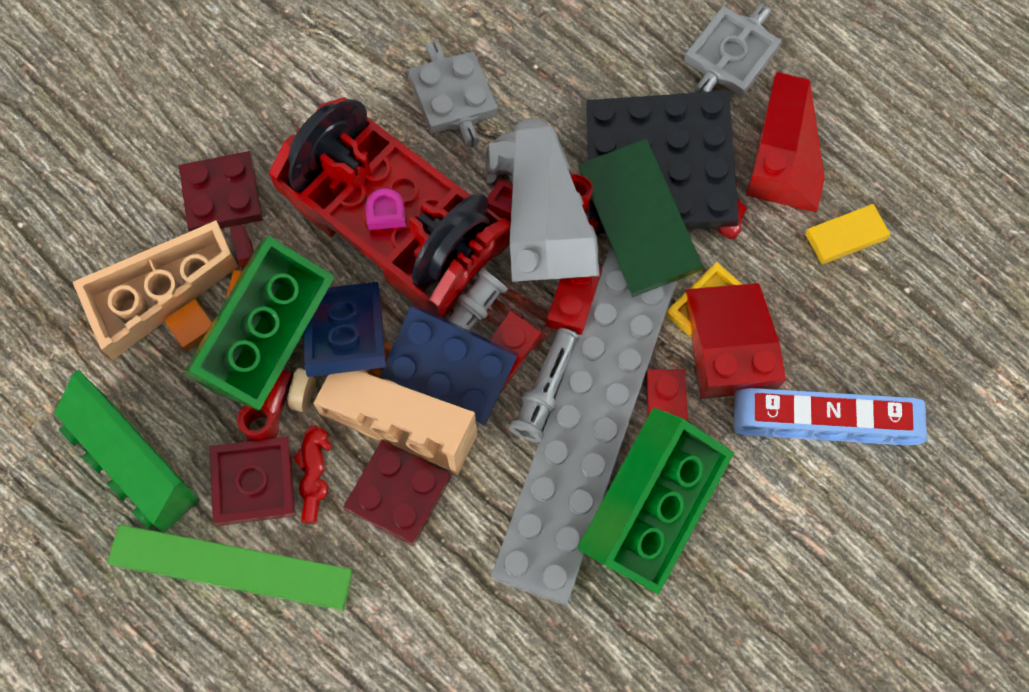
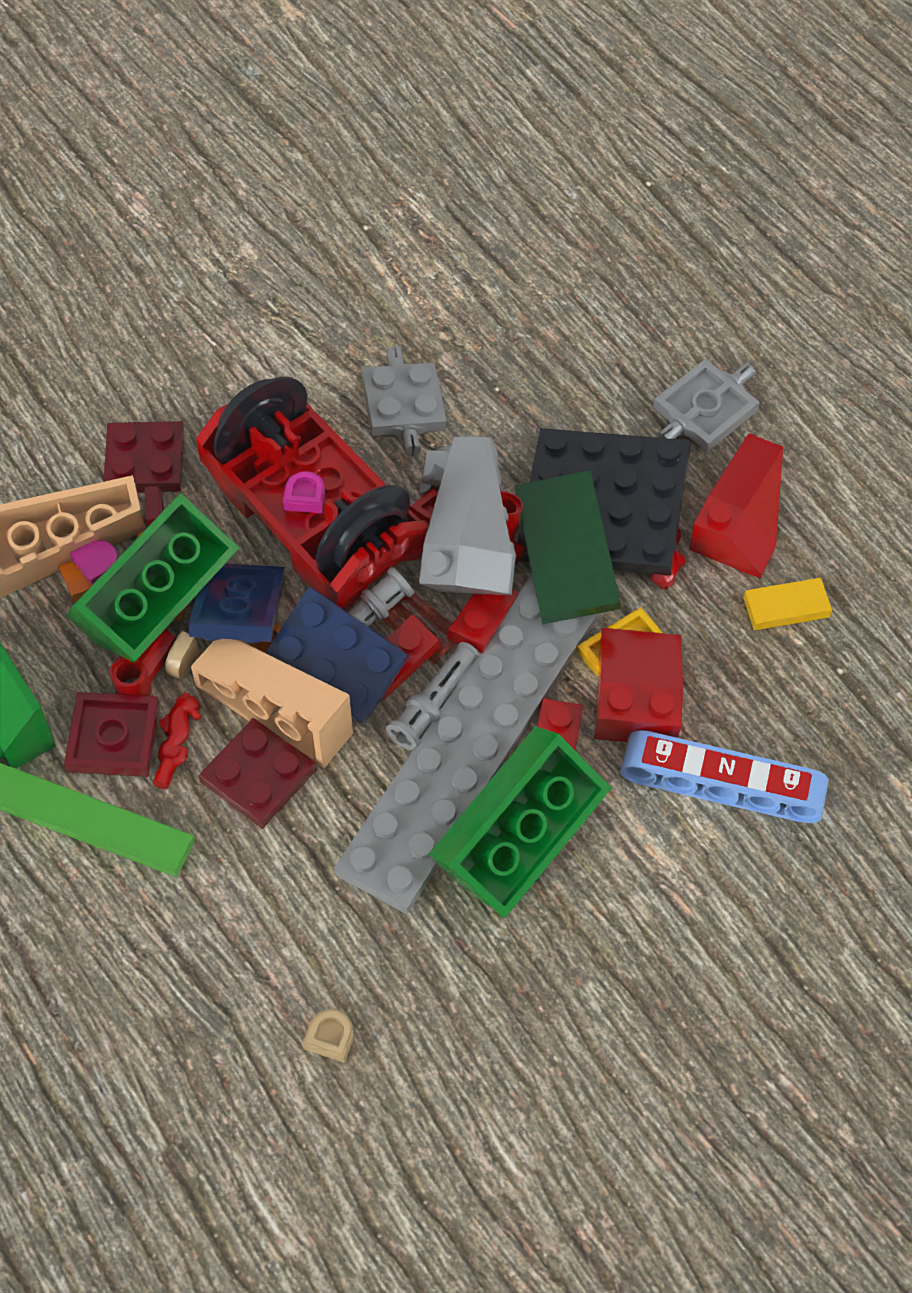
camera: 10 degrees right, 10 degrees down
(198, 309) = (94, 559): none -> dark pink tile

